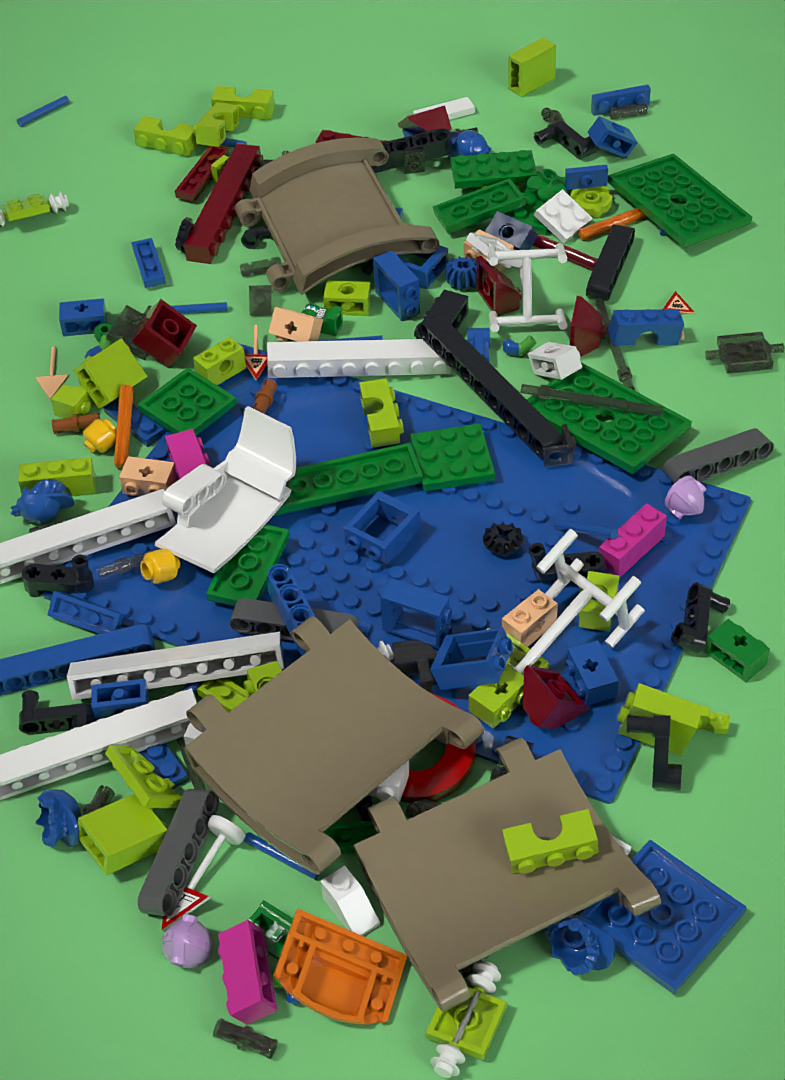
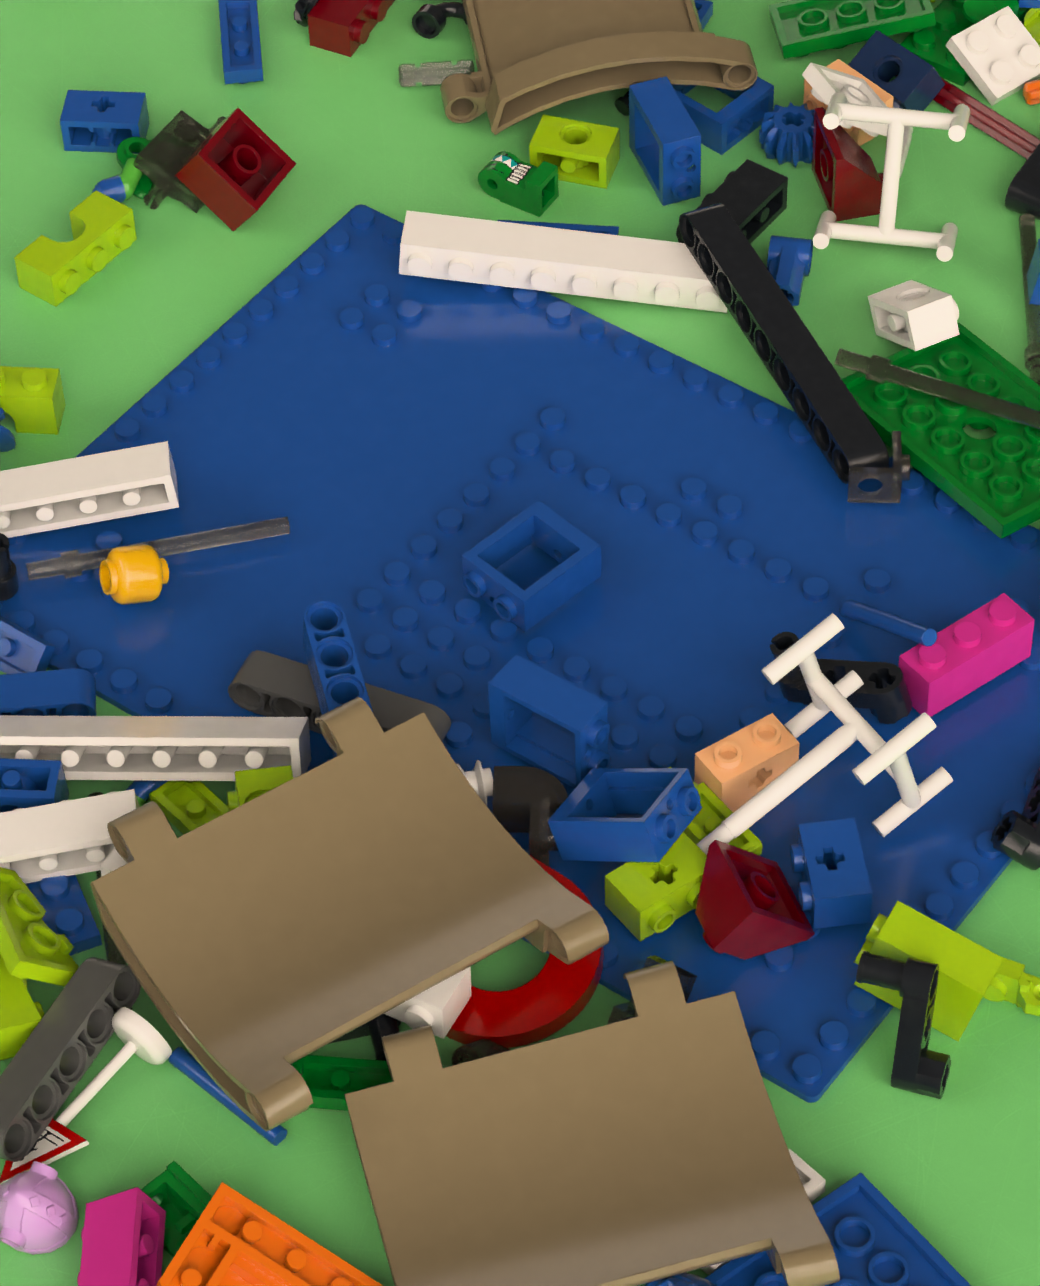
camera: 10 degrees right, 0 degrees up
(51, 383) = (26, 229): light nougat piece -> none
(75, 423) = (51, 306): dark orange pin -> none
(100, 436) = (86, 334): yellow head -> none
(108, 371) = (124, 226): lime brick -> none
(123, 426) = (129, 324): orange axle -> none
(142, 427) = (152, 316): blue plate -> none
(146, 476) = (146, 415): light nougat brick -> none
(186, 452) = (227, 407): dark pink brick -> none
(187, 403) = (247, 301): green plate -> none
(200, 308) = (311, 133): blue bar -> none
(220, 361) = (319, 235): lime brick -> none
(233, 501) = (279, 480): white beam -> none
(248, 570) = (270, 601): green plate -> none
(256, 362) = (384, 243): piece -> none
(260, 300) = (420, 133): clear smoke bracket -> none
(264, 398) = (381, 310): dark orange pin -> none
(284, 321) = (454, 175): light nougat brick -> none
(349, 902) = (319, 1190): white slope -> none
(352, 477) = (448, 473): green plate -> none
(381, 412) = (580, 364): lime arch -> none
(453, 457) = (688, 461): green plate -> none
(500, 545) = (730, 627): black gear -> none
(518, 349) = (858, 286): arm -> none
(529, 852) = (716, 1151): lime arch -> none
(586, 327) = (984, 264): dark red slope -> none
(589, 614) = (887, 720): lime brick -> none

